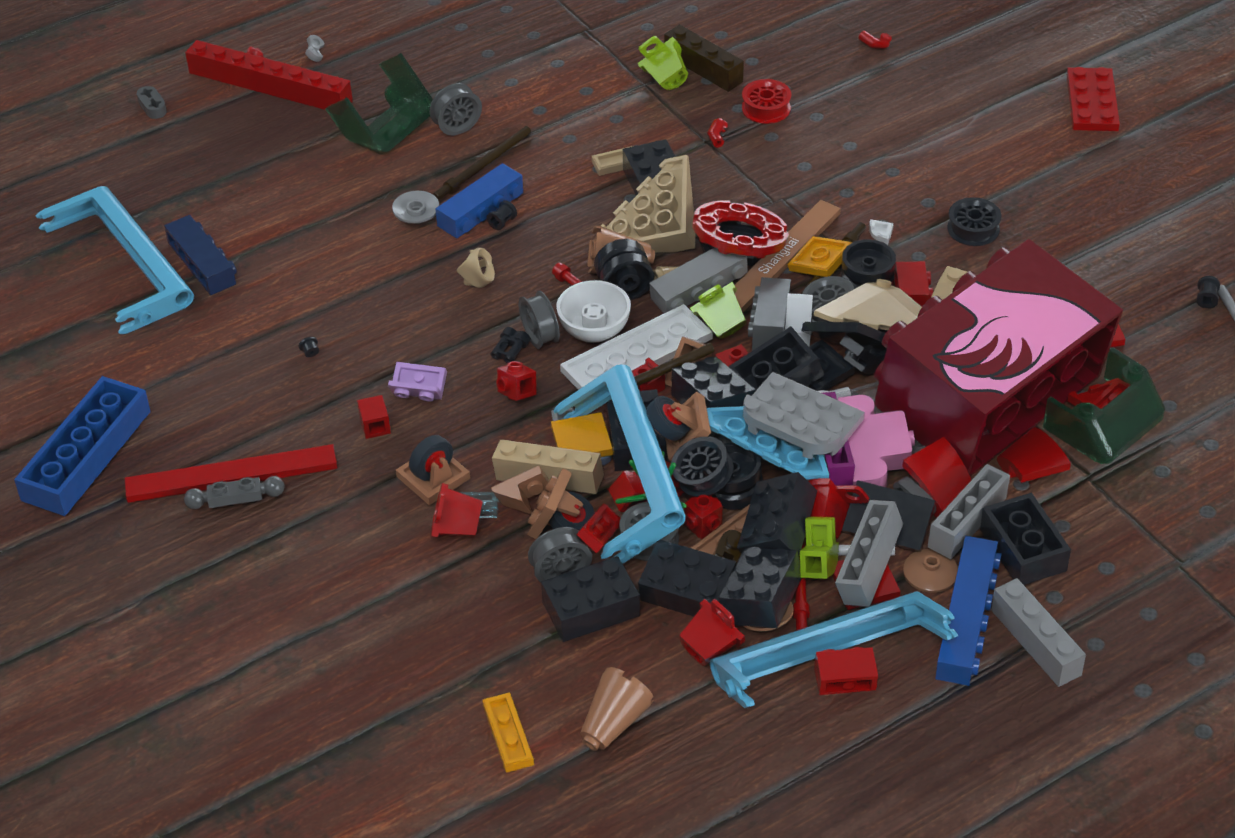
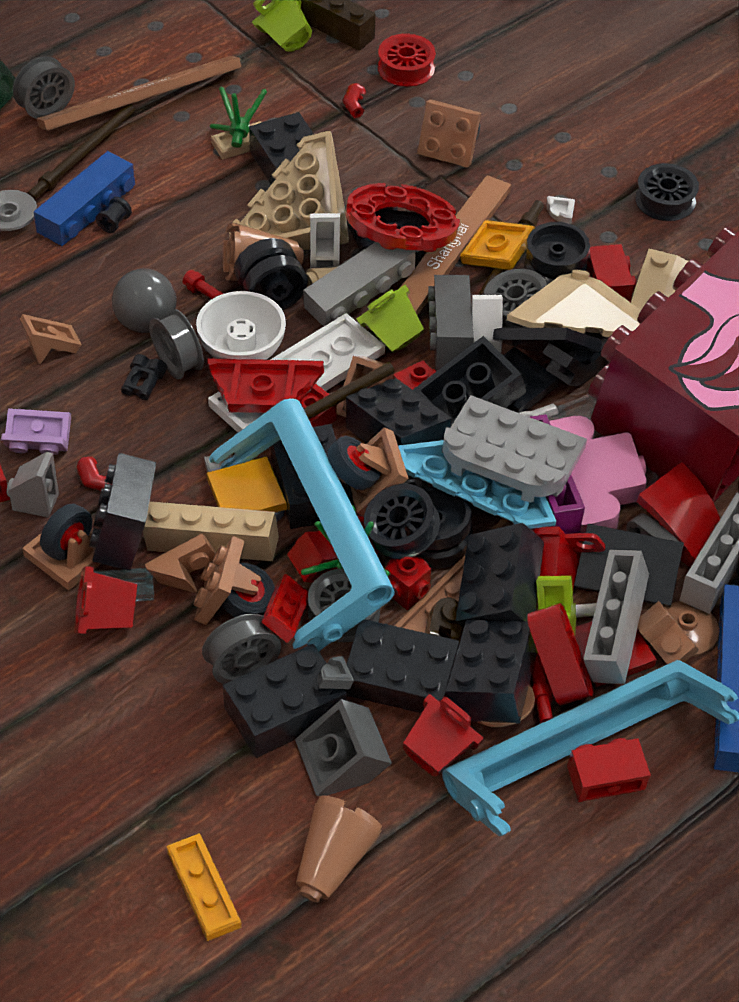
camera: 10 degrees left, 5 degrees up
(411, 422) = (35, 486): none -> light grey slope
(435, 306) = (48, 334): none -> nougat slope
(457, 419) = (89, 473): none -> red arm
(471, 268) = (86, 284): tan piece -> none
(477, 444) = (122, 511): none -> black brick
(516, 279) = (142, 296): none -> dark grey piece
(516, 381) = (158, 423): red brick -> none
(536, 117) = (138, 93): none -> nougat tile
(596, 354) = (262, 384): none -> red wing
(615, 147) = (239, 125): none -> green plant
(631, 579) = (335, 674): none -> dark grey tile
(632, 638) = (342, 749): none -> dark grey slope
(672, 243) = (324, 240): none -> white slope
(792, 163) = (449, 133): none -> nougat plate
(817, 578) = (560, 654): none -> red beam
(911, 572) = (666, 635): none -> nougat slope

